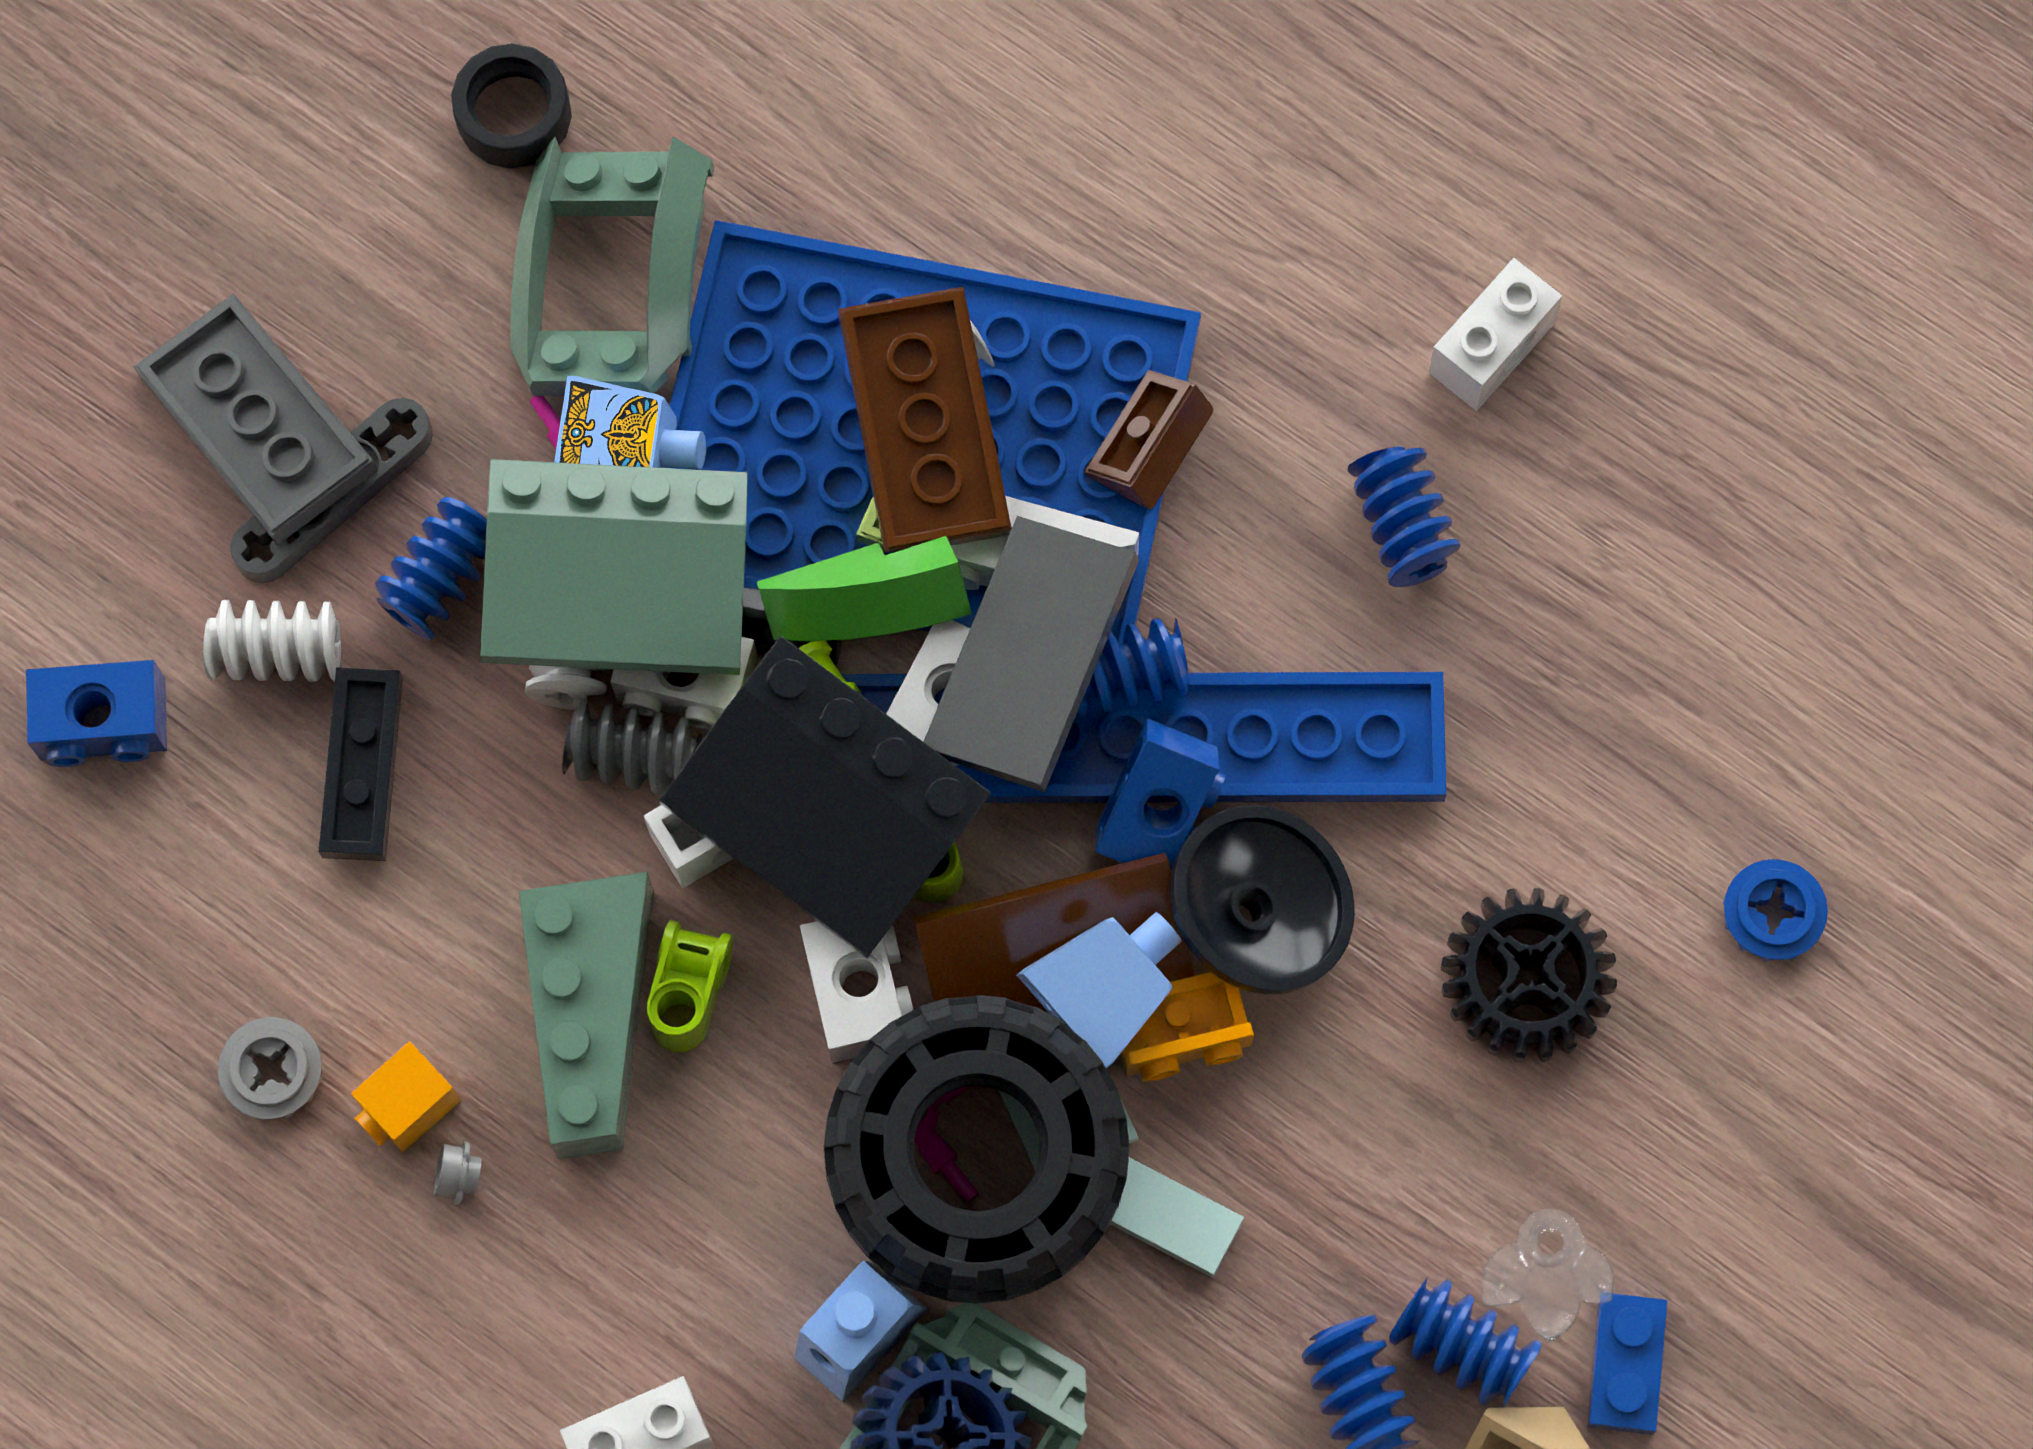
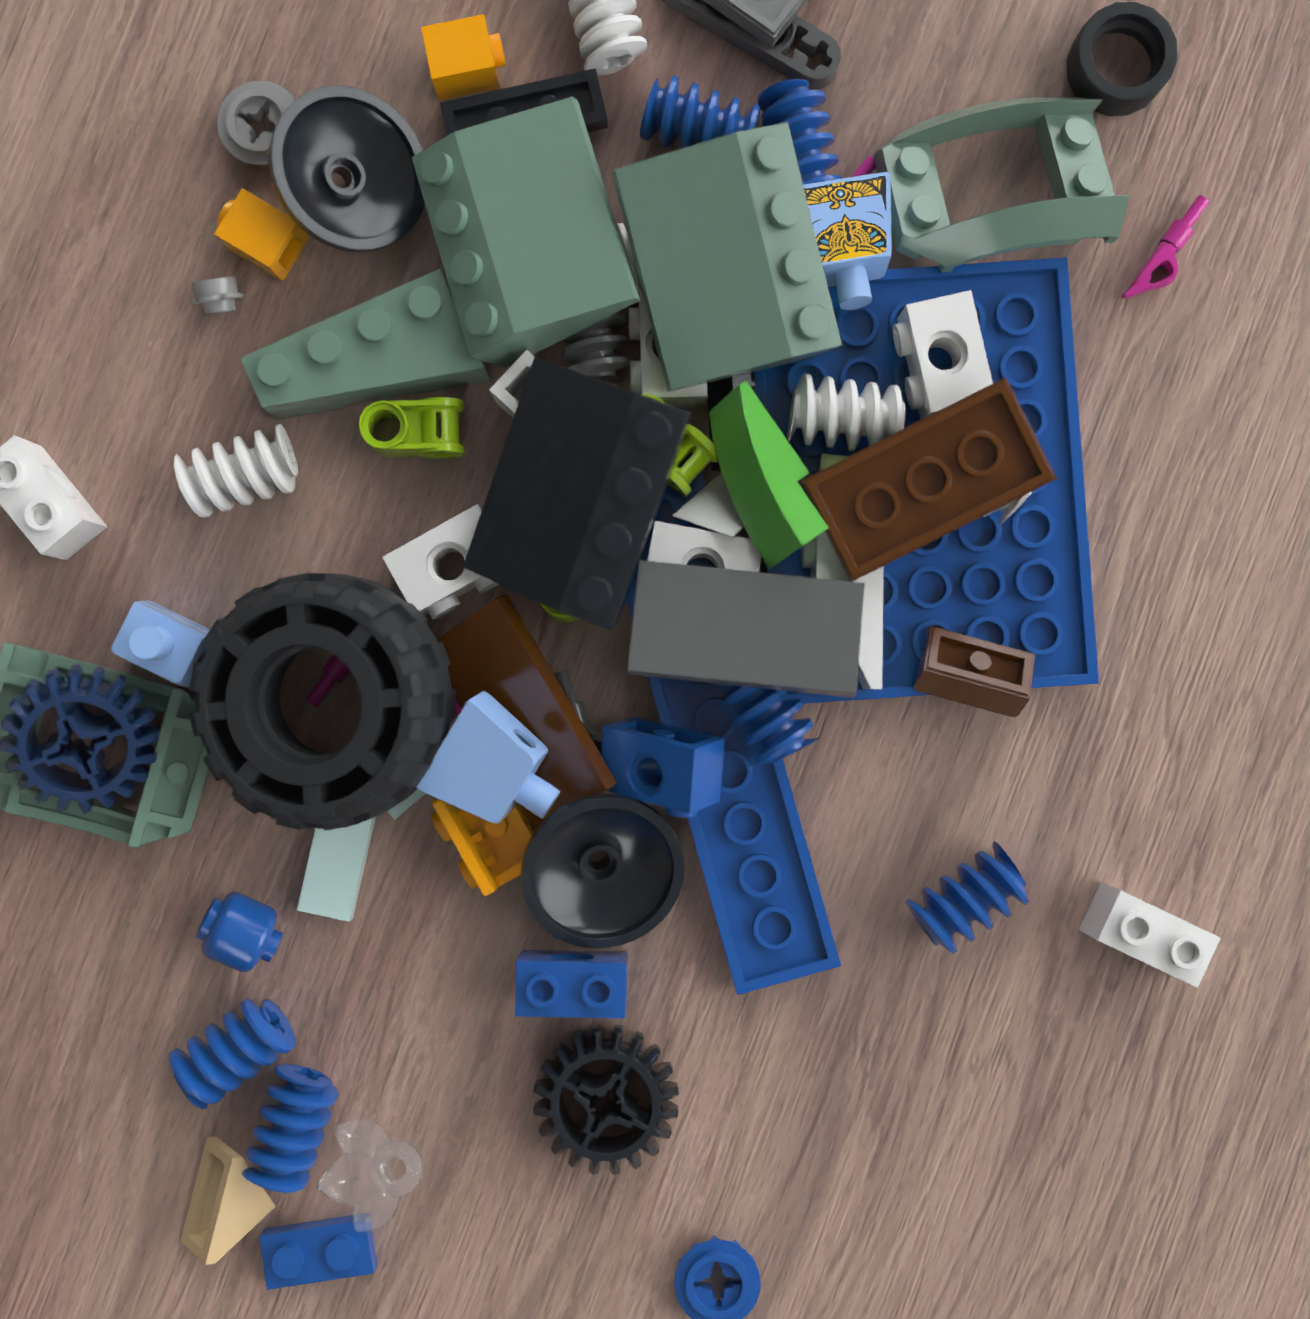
camera: 70 degrees right, 15 degrees up
(272, 813) = (463, 56): none -> light orange brick
(367, 967) = (365, 144): none -> black dish
(468, 465) = (794, 103): none -> blue piece
(507, 782) = (524, 231): none -> sand green slope
(674, 1194) = (237, 474): none -> white piece
(731, 108) = (1164, 255): none -> dark pink hand
(763, 352) = (946, 324): none -> white brick
(817, 493) = (845, 412): none -> white piece
(881, 660) = (712, 509): none -> white sticker
(1220, 1345) = (239, 932): none -> blue head
(1383, 974) = (571, 984): none -> blue brick

